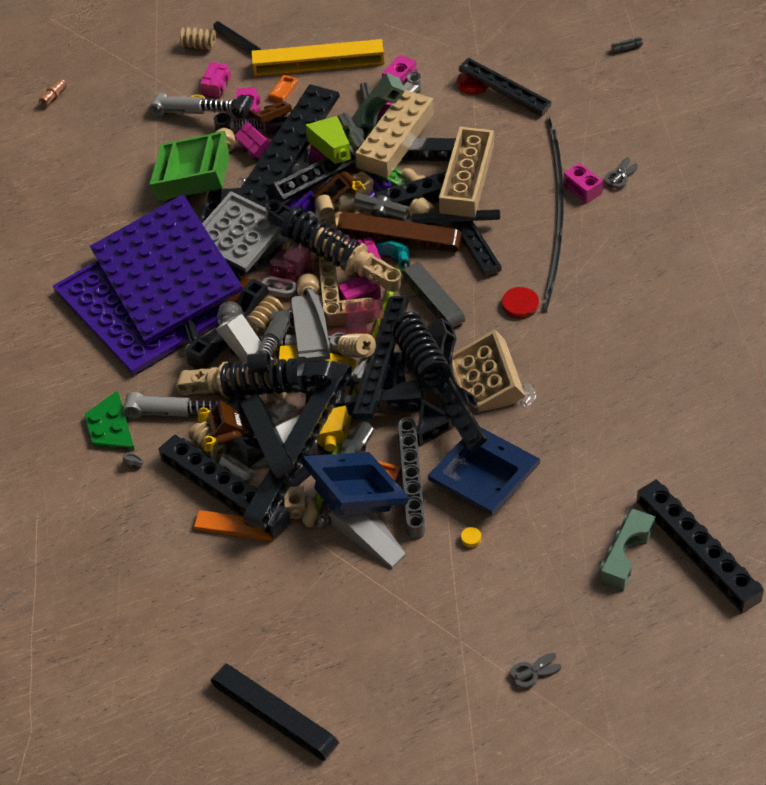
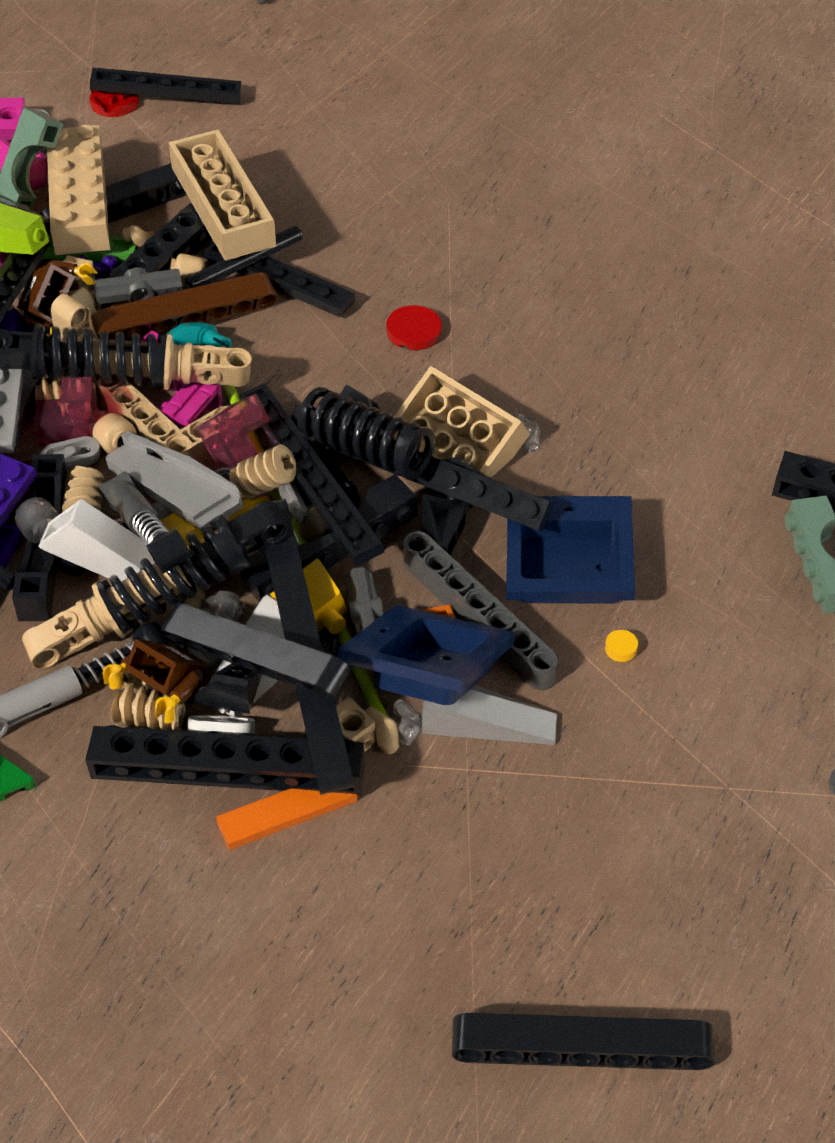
camera: 40 degrees left, 0 degrees up
(132, 459) = (49, 799): dark grey piece -> none
(432, 294) = (298, 367): dark grey beam -> none
(560, 215) = (363, 201): dark grey piece -> none
(583, 183) = (365, 156): dark pink brick -> none
(622, 173) = (398, 130): dark grey piece -> none

